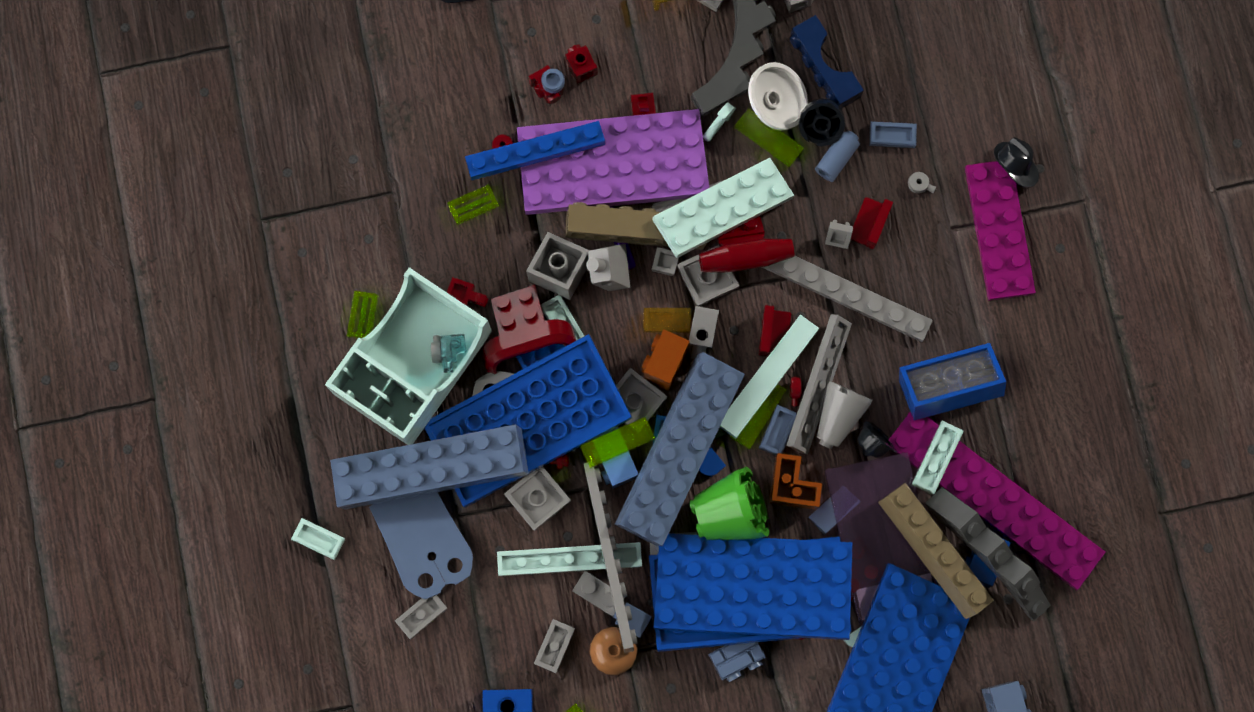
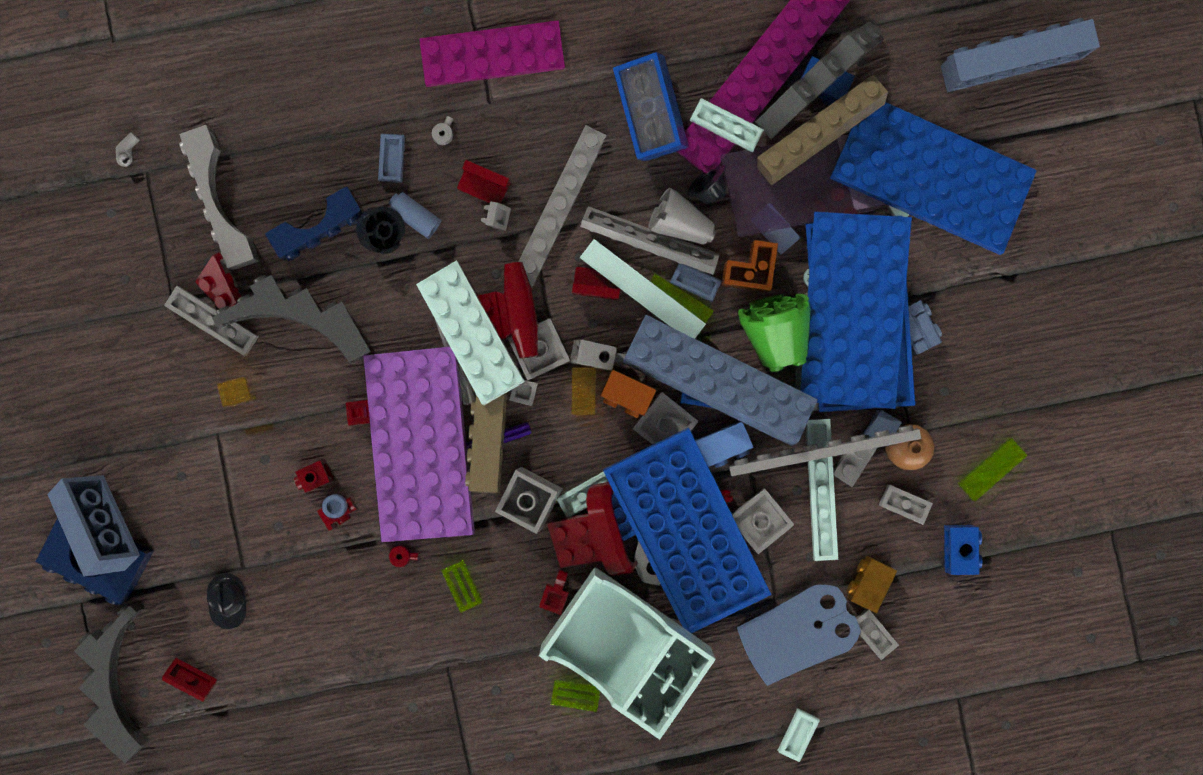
camera: 90 degrees left, 10 degrees up
(429, 467) = (734, 628): sand blue brick -> none
(436, 349) = (616, 623): light grey piece -> none
(450, 347) = (618, 612): clear light blue bracket -> none
(473, 610) = (871, 584): none -> pearl gold brick
(535, 150) = (408, 524): blue plate -> none
(609, 267) = (530, 449): light grey torso -> none
(617, 442) = (711, 442): clear neon green tile -> none
(711, 464) = (730, 347): blue tile -> none
(723, 115) = (371, 331): light aqua bar -> none
(770, 139) = (393, 284): clear neon green tile -> none
(785, 92) = (348, 266): white dish -> none
(795, 390) = (656, 264): dark red piece -> none
(1017, 161) = (421, 32): black piece -> none

